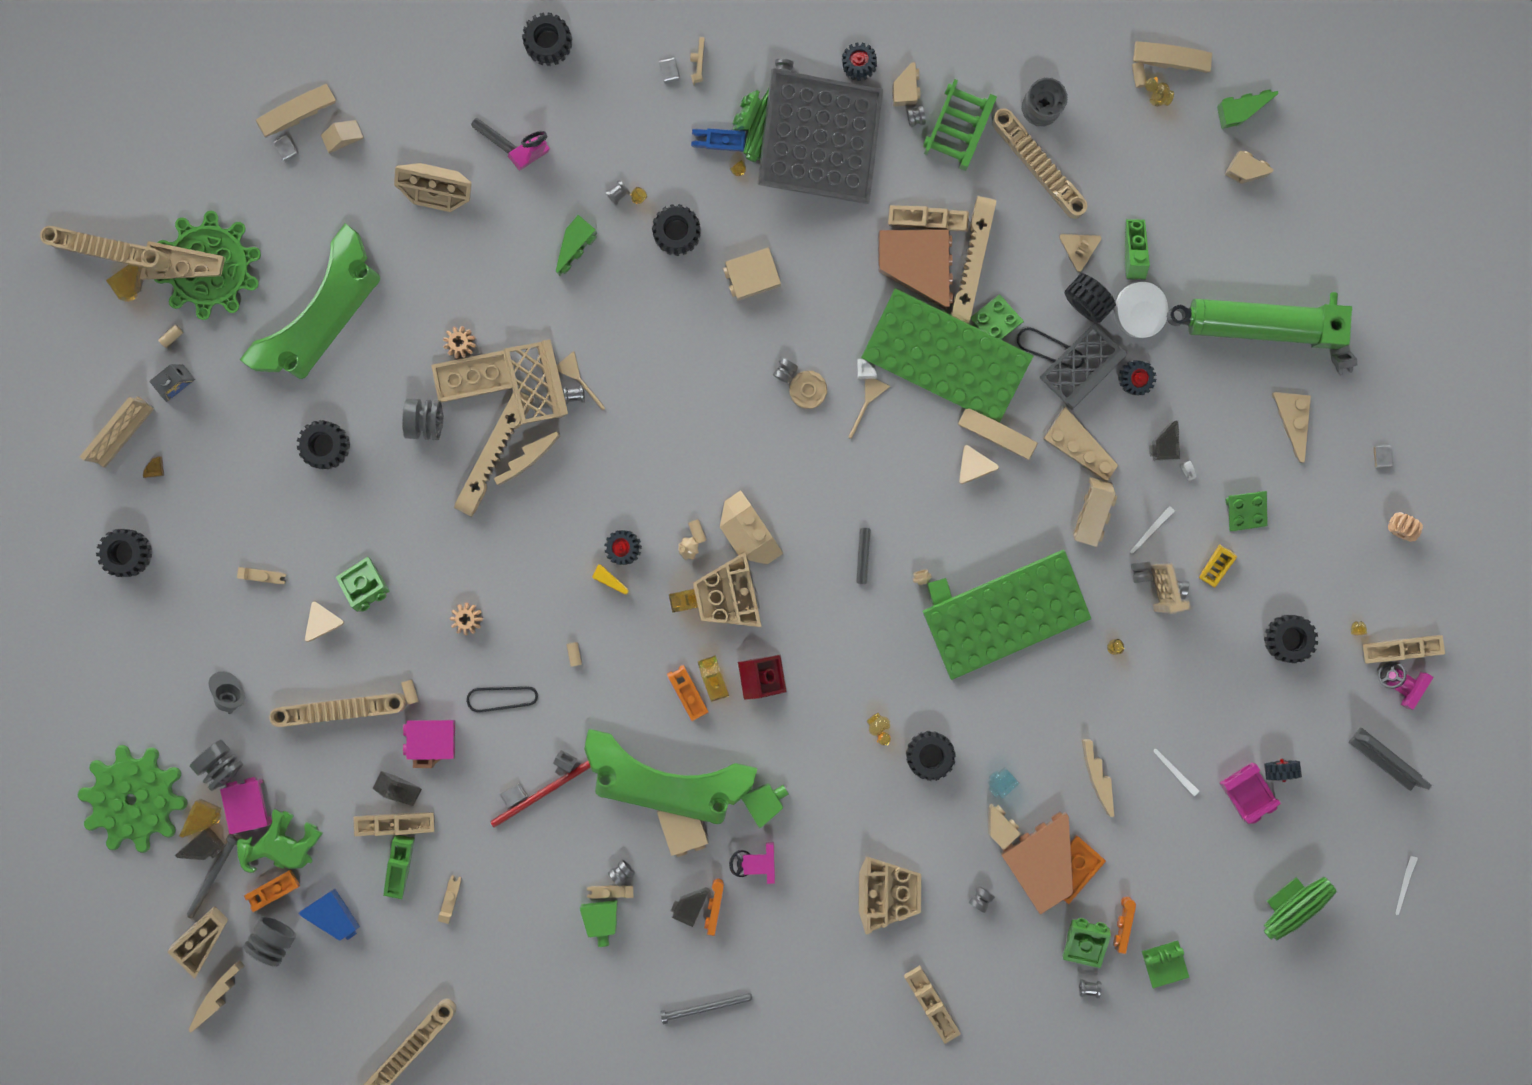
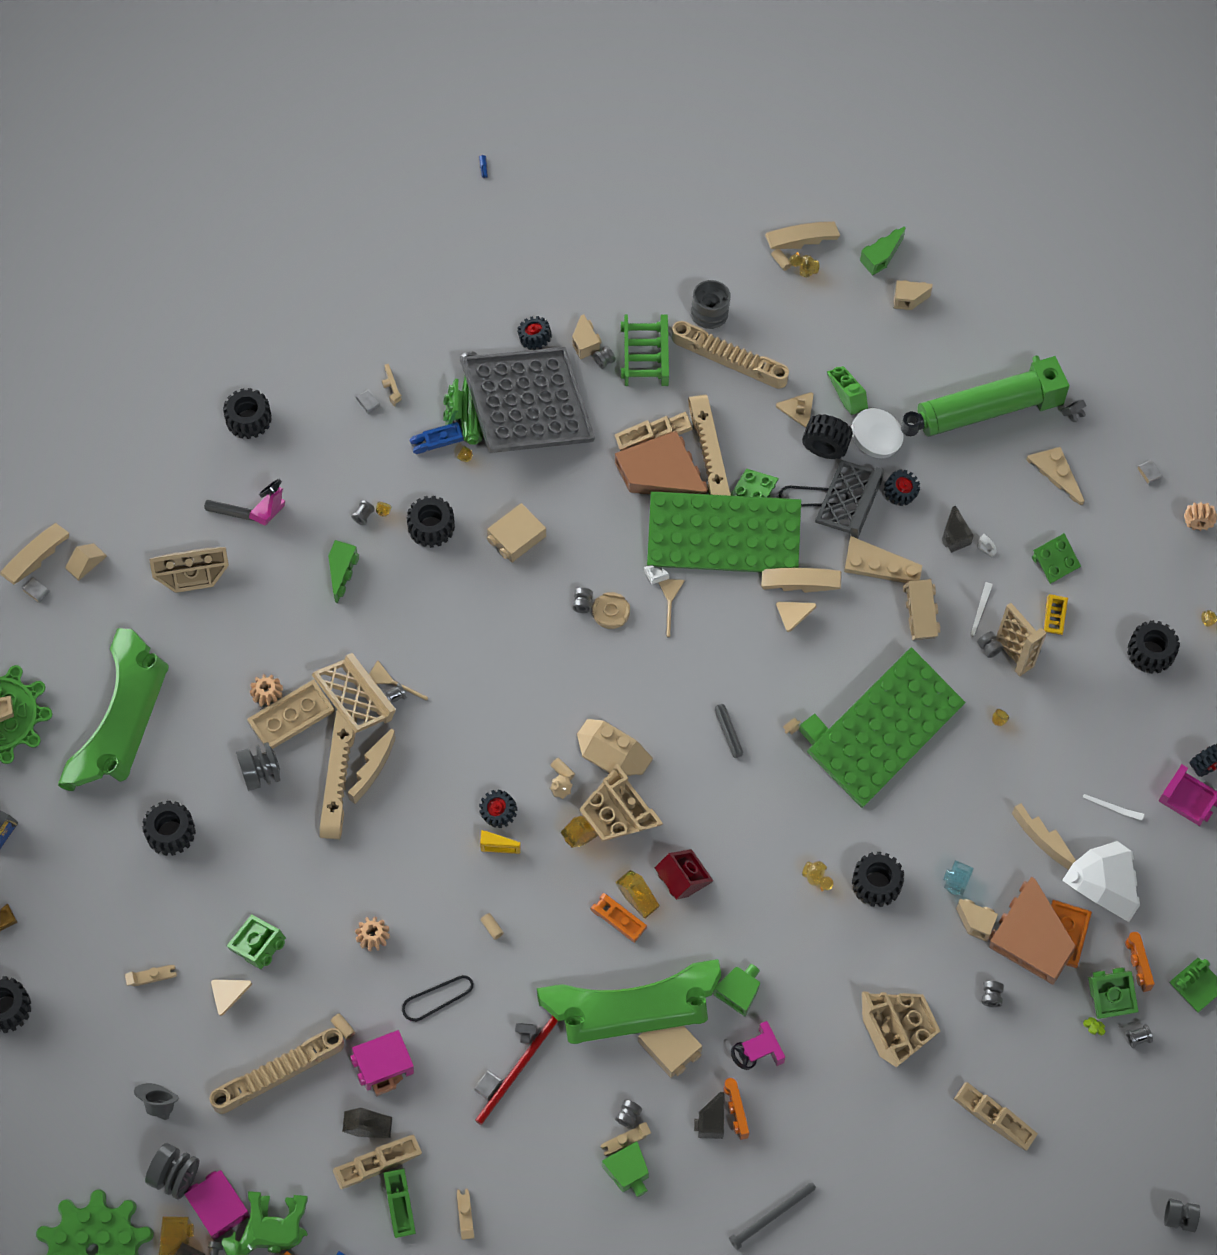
camera: 20 degrees left, 25 degrees down
(1056, 963) = (1094, 1026): none -> lime plant
(1133, 842) = (1107, 878): none -> white brick

